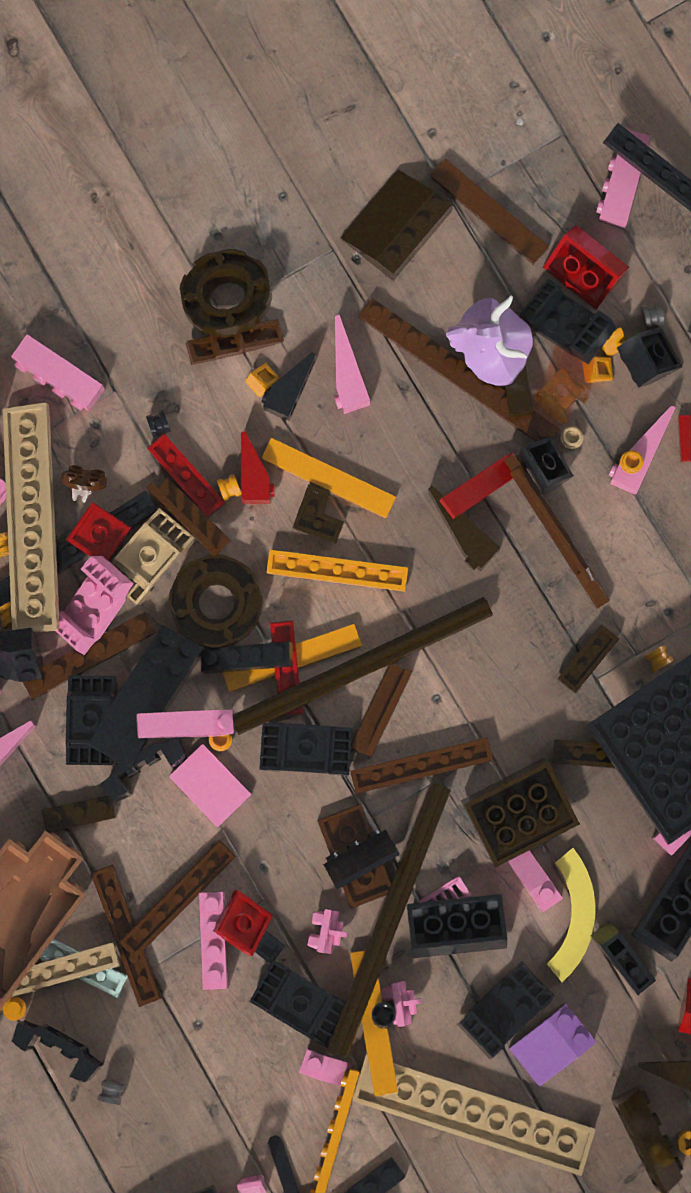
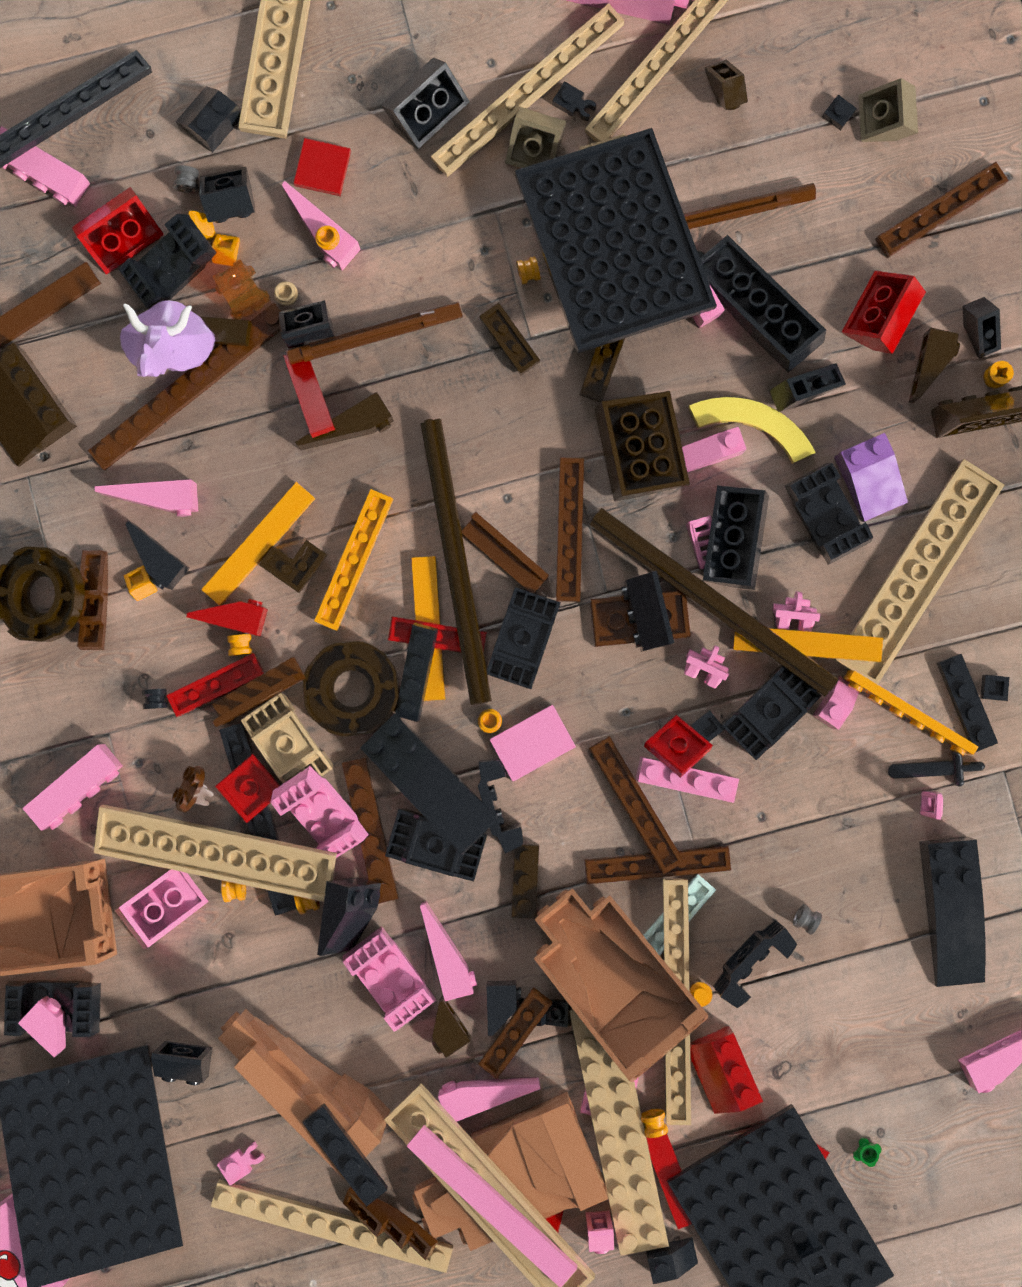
camera: 80 degrees left, 5 degrees up
(185, 724) = (467, 751): bright pink slope -> none
(383, 1015) = (809, 631): black wheel -> none

